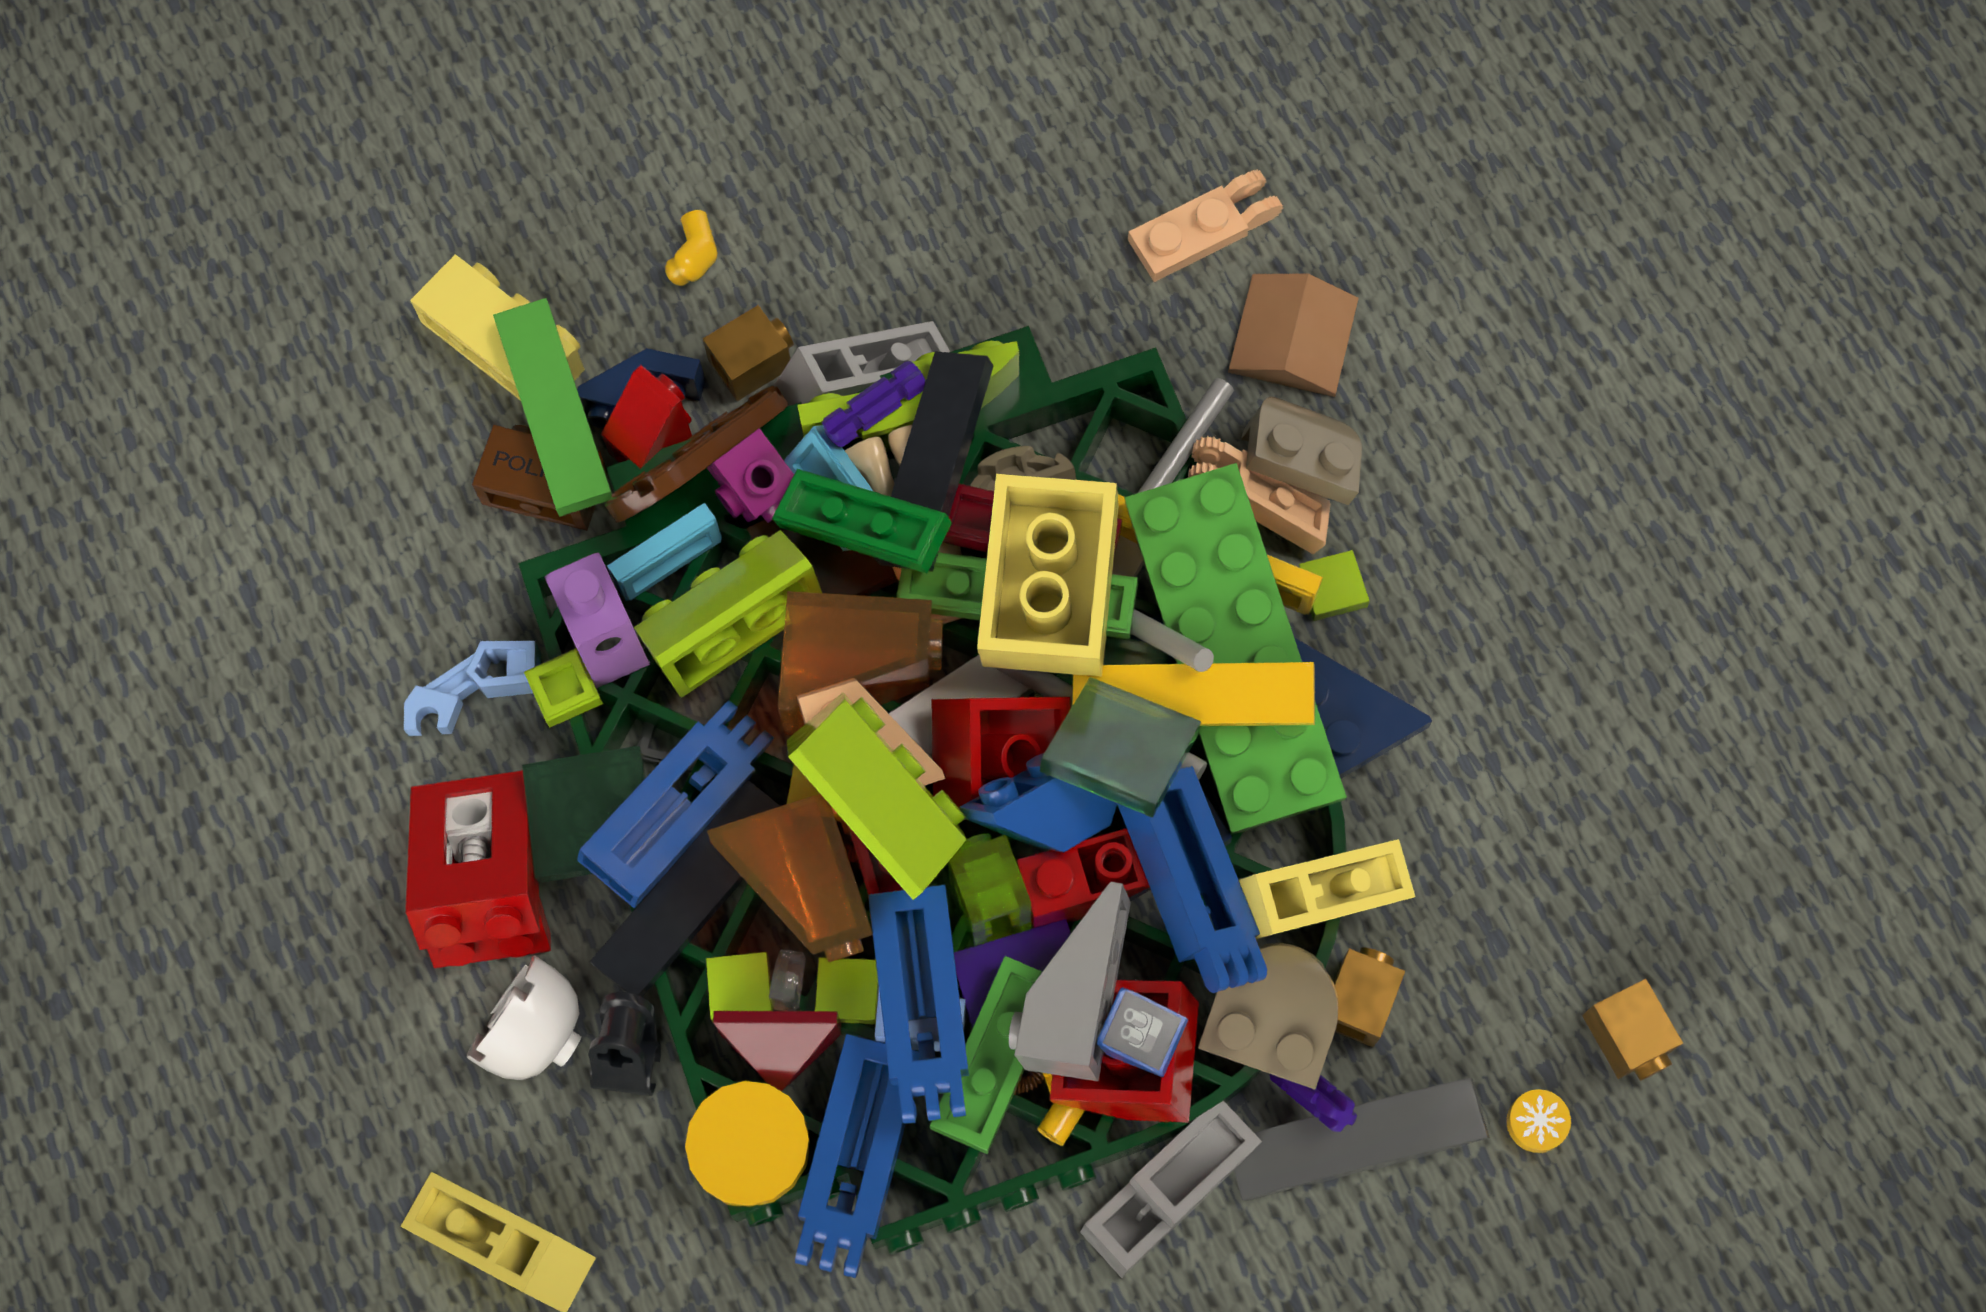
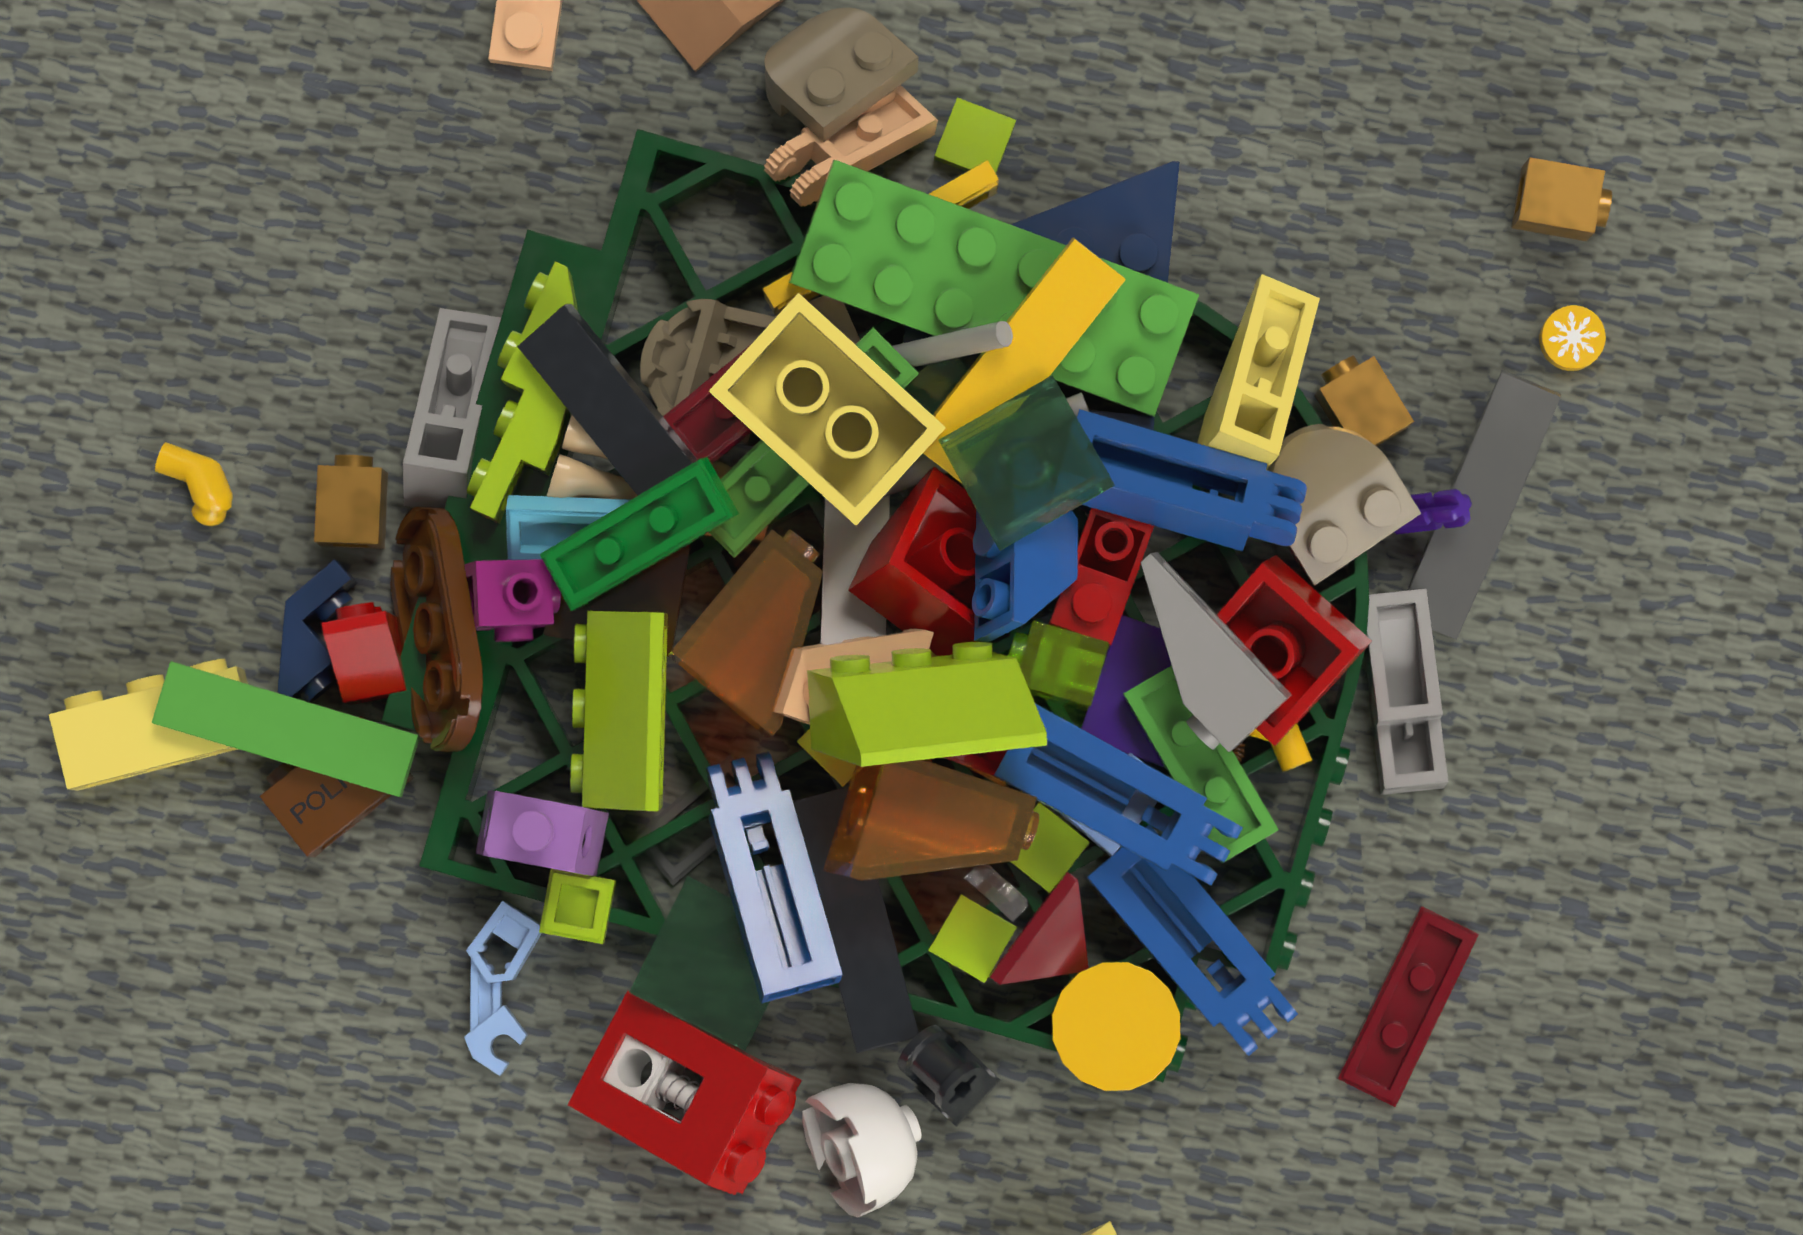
camera: 55 degrees left, 15 degrees up
(665, 552) = (519, 726): medium azure tile -> none
(874, 404) = (526, 438): dark purple axle -> none
(1141, 1032) = (1284, 629): slope -> none
(1193, 429) = (757, 182): light grey bar -> none

